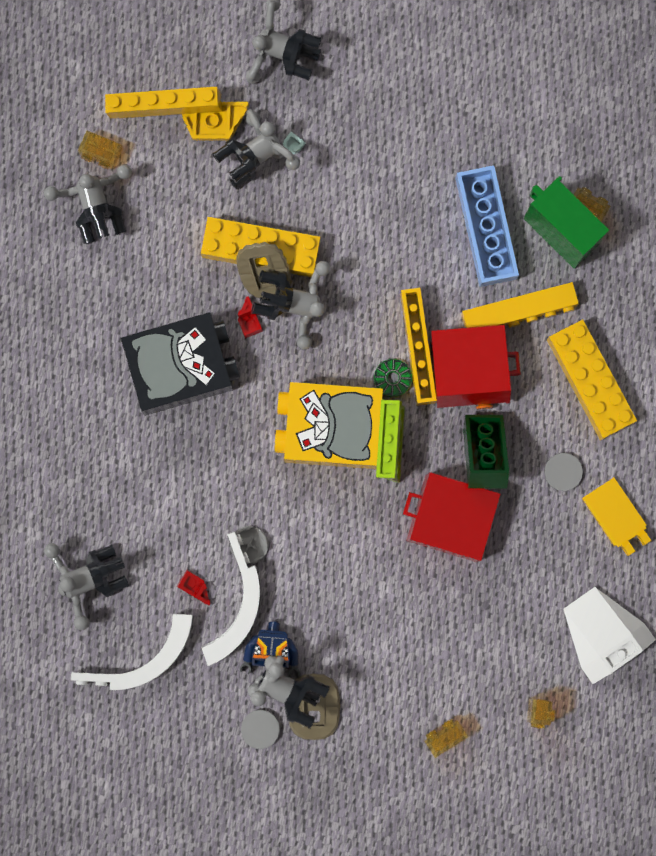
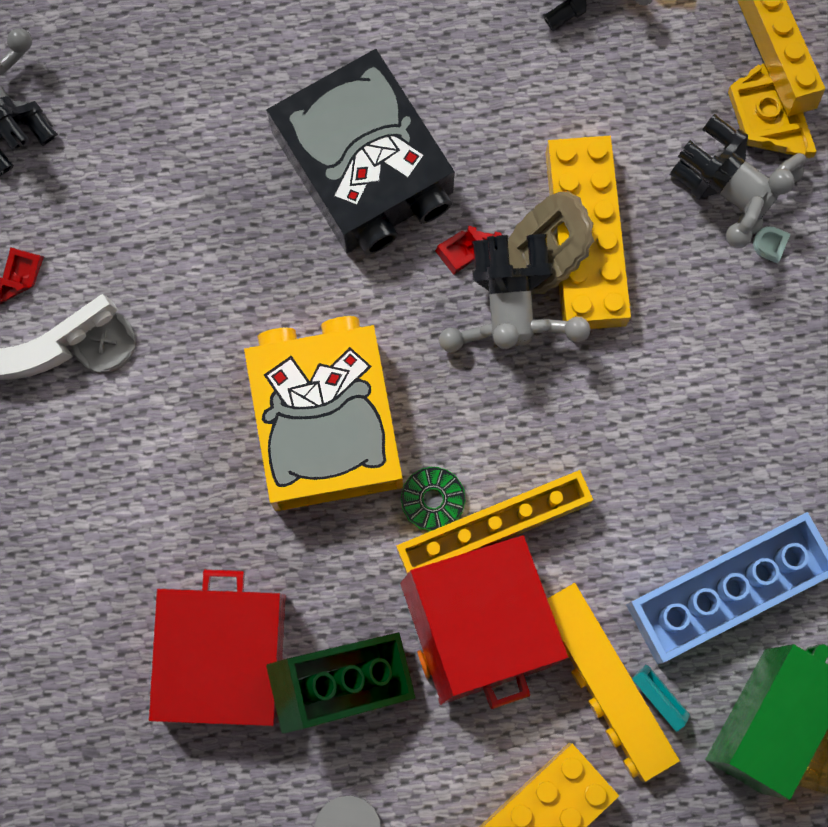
camera: 80 degrees right, 5 degrees down
(390, 440) = (312, 511): lime fence -> none
(535, 282) = (661, 697): none -> teal tile

